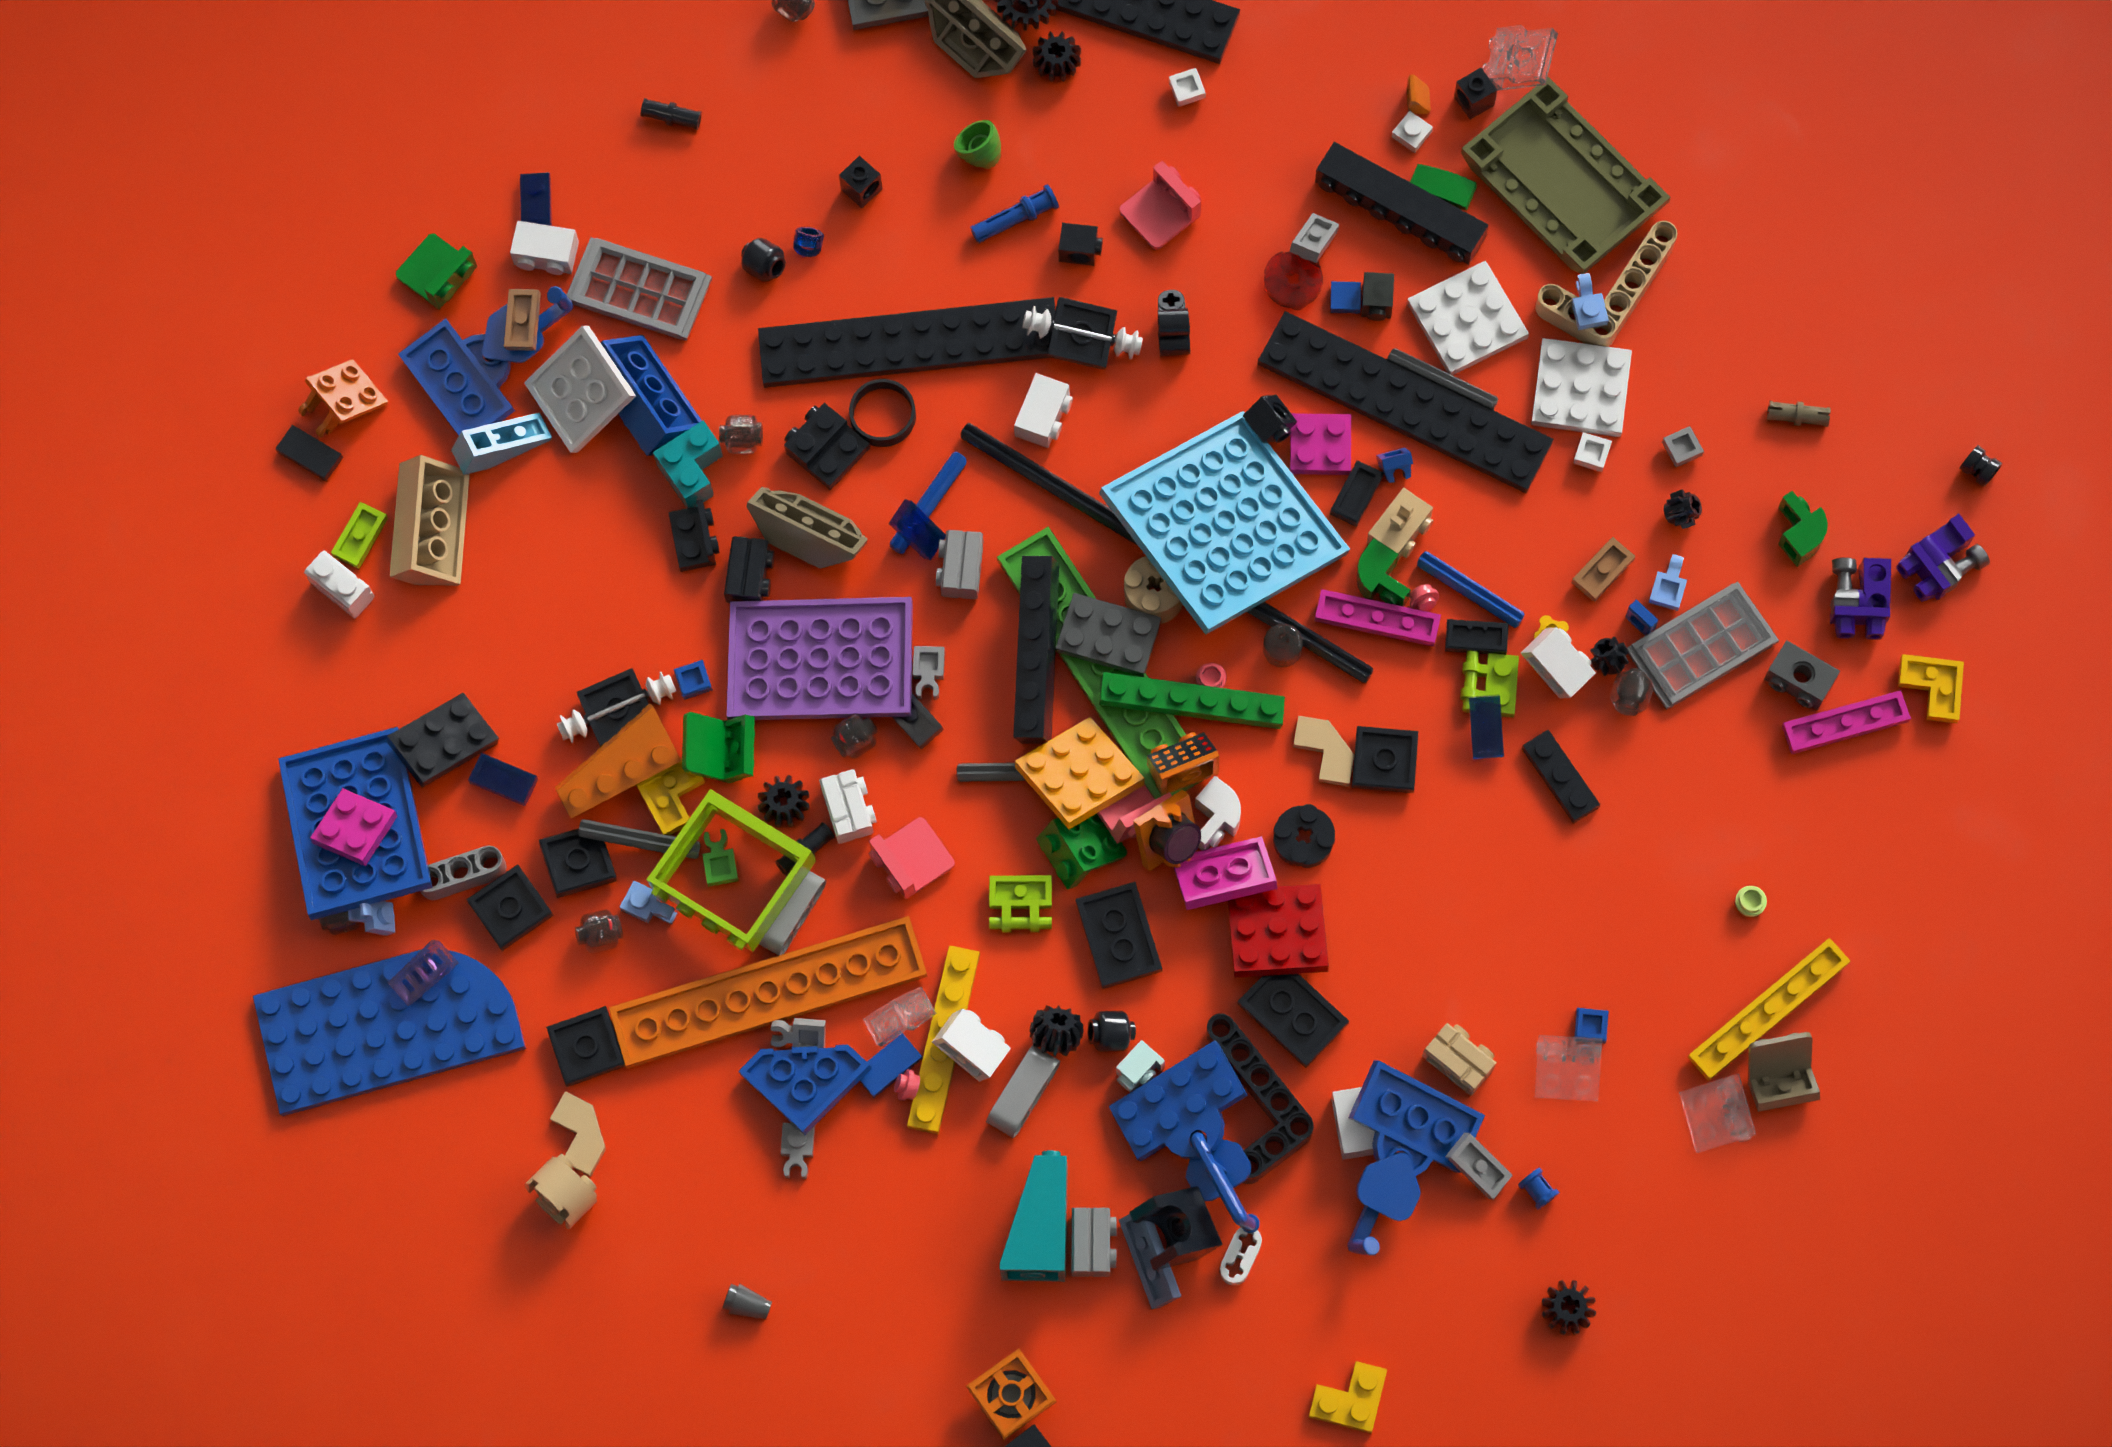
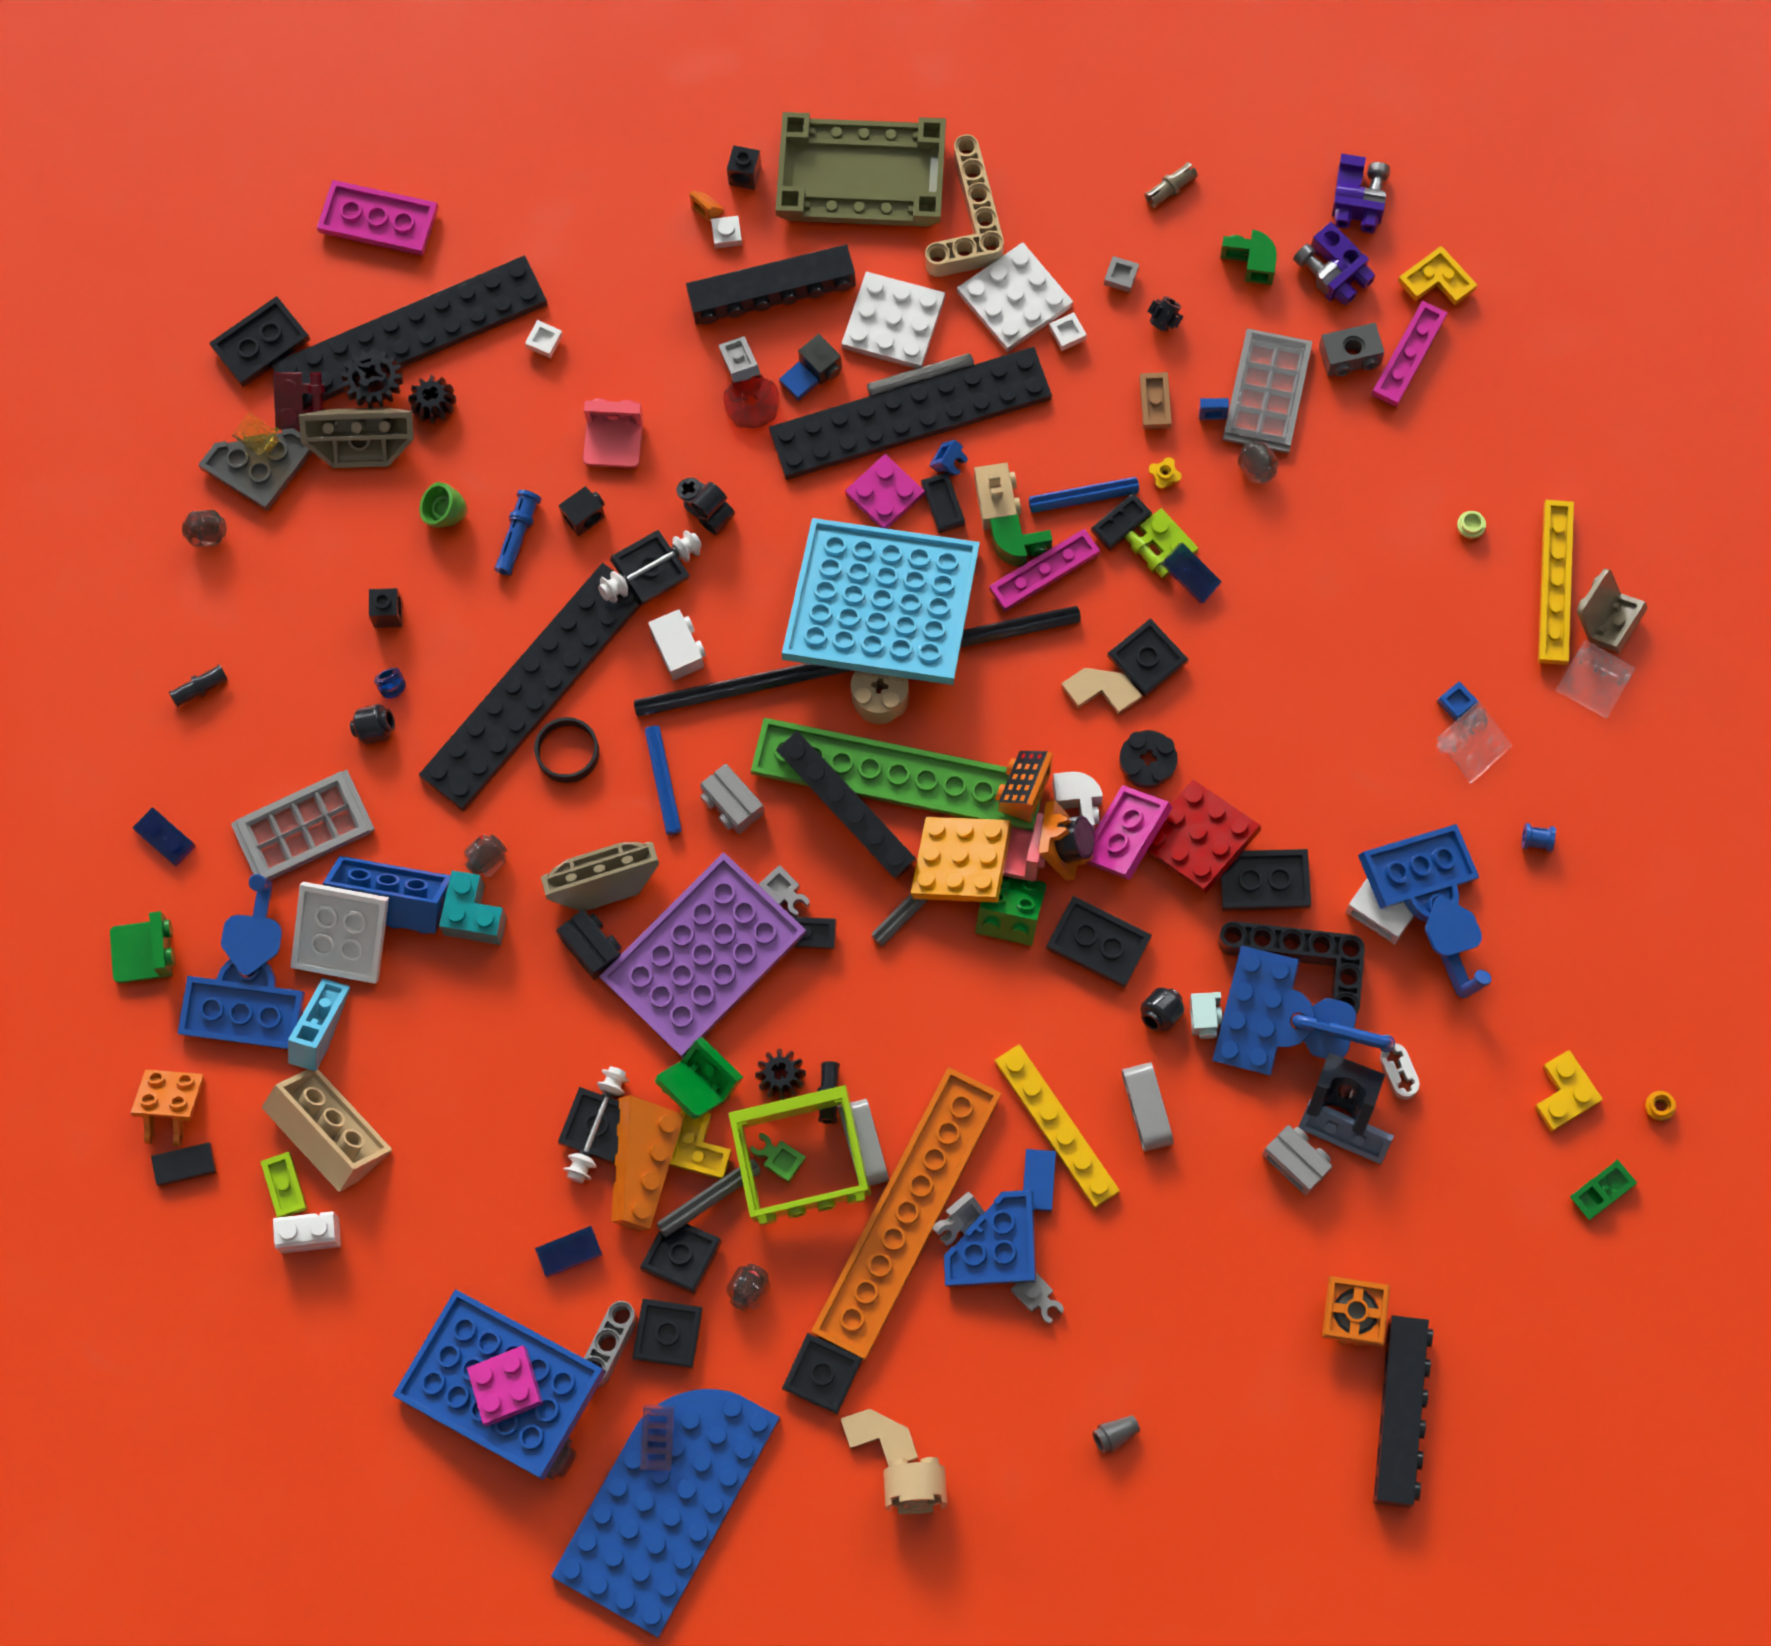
camera: 45 degrees left, 0 degrees up
(376, 917) = (584, 1434): light blue plate -> none
(442, 740) = (498, 1266): black plate -> none
(522, 319) = (250, 922): medium nougat plate -> none
(544, 248) = (205, 861): white brick -> none
(644, 905) = (757, 1238): light blue plate -> none
(692, 537) = (525, 958): black bracket -> none
(693, 679) = (628, 1054): blue tile -> none
(825, 445) = (551, 809): black plate -> none
(847, 806) = (827, 1034): white brick -> none
(854, 736) = (782, 983): clear smoke head -> none
(899, 1015) = (1012, 1139): clear slope -> none
(907, 1085) = (1067, 1180): coral plate -> none
(911, 857) = (907, 1026): coral bracket -> none
(917, 529) = (678, 803): clear blue plate -> none
(971, 1044) = (1083, 1109): white brick -> none
(1020, 892) = (1004, 978): lime plate -> none
(1039, 1229) = (1255, 1179): teal slope -> none
(1056, 1030) = (1128, 1044): black gear -> none
(1108, 634) = (882, 749): dark grey plate -> none
(1191, 700) = (982, 740): green plate -> none
(1211, 675) = (977, 714): coral plate -> none
(1270, 419) = (837, 506): black brick -> none
(1282, 645) = (1004, 646): clear smoke head -> none
(1423, 598) = (1061, 528): coral plate -> none
(1445, 185) = (787, 246): green slope -> none
(1460, 1058) = (1401, 803): tan brick -> none
(1479, 1165) = (1488, 859): light grey plate -> none
(1520, 57) = (750, 115): clear plate -> none
(1558, 662) = (1193, 486): white brick -> none
(1560, 776) = (1269, 560): black plate -> none
(1563, 1317) = (1648, 900): black gear -> none
(1588, 308) = (970, 238): light blue plate -> none
(1609, 656) = (1220, 452): black gear -> none
(1668, 587) = (1207, 373): light blue plate -> none
(1980, 466) = (1320, 112): black wheel -> none

